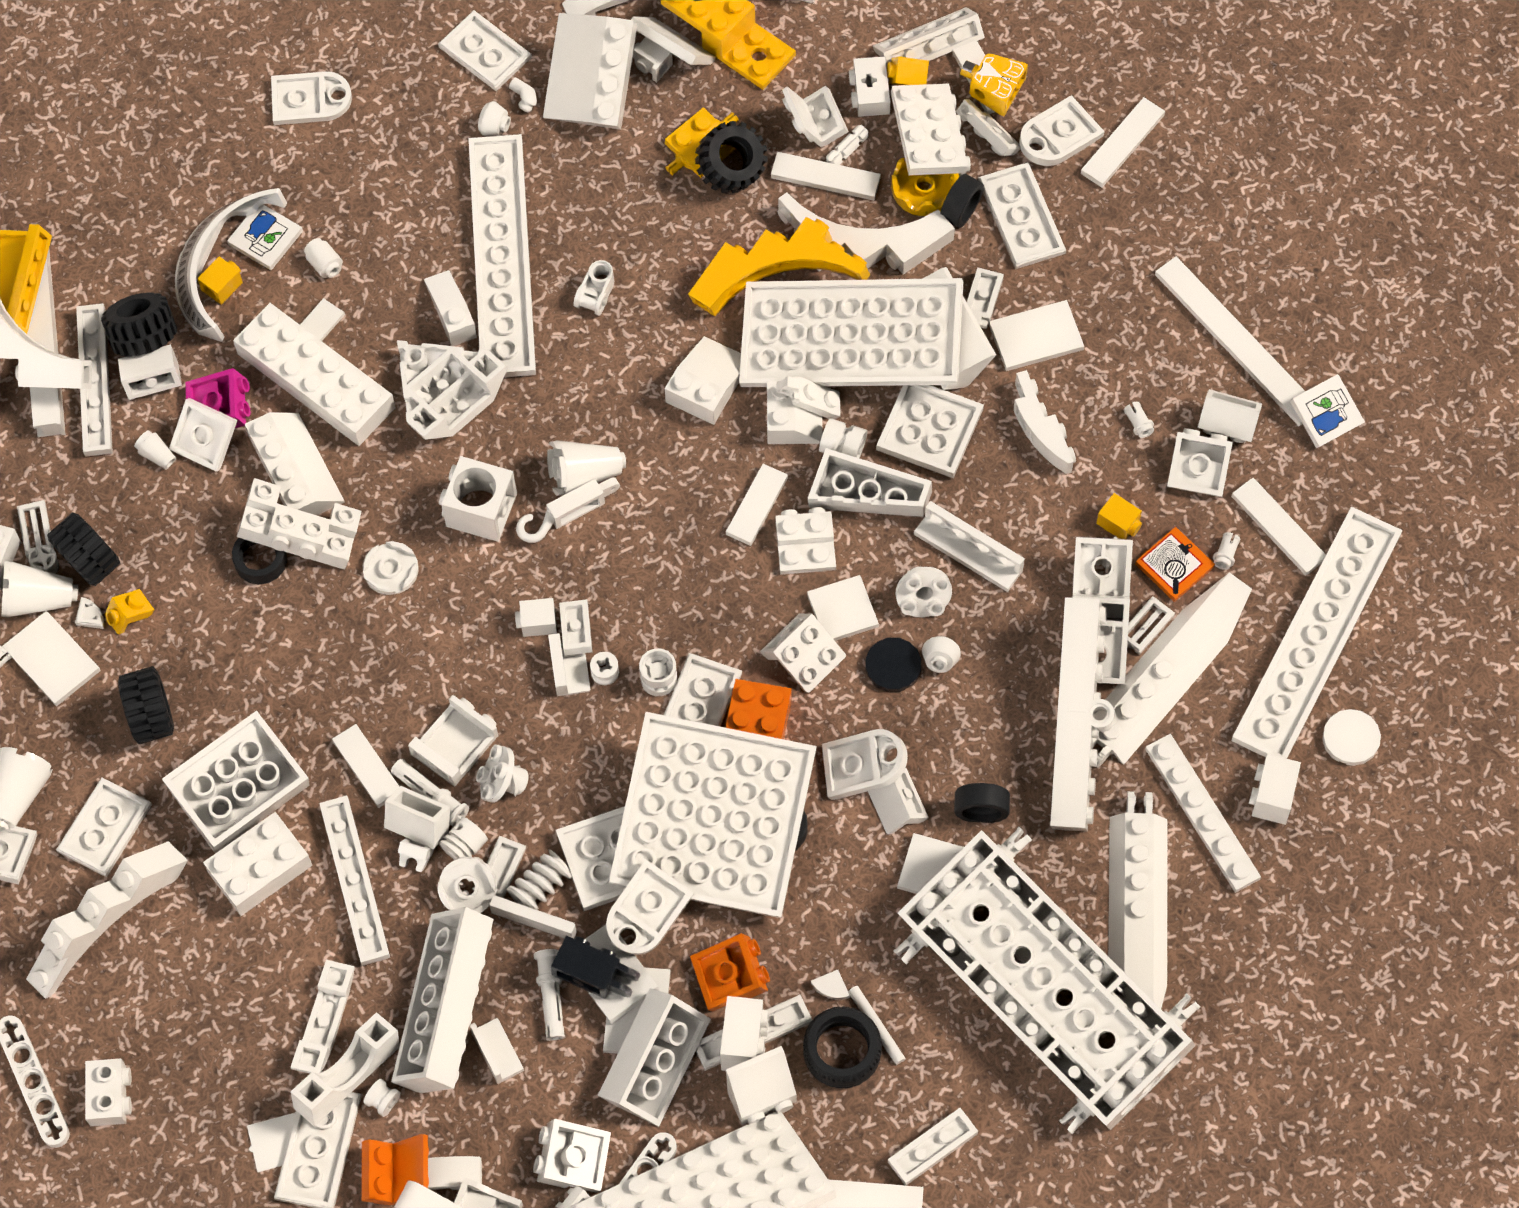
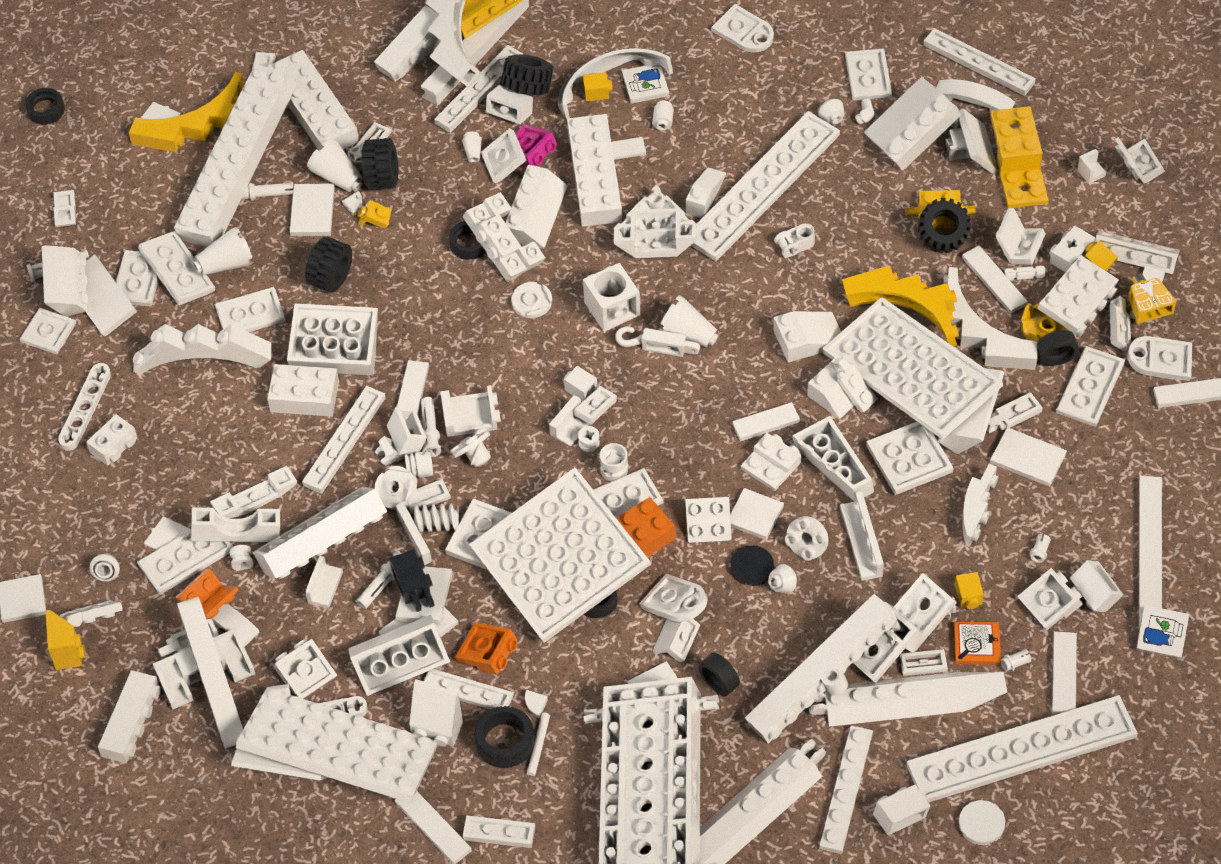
camera: 45 degrees right, 10 degrees down
(648, 908) = (473, 574): white tile -> none
(742, 1031) = (456, 673): white brick -> none
(843, 439) = (850, 423): white wheel -> none

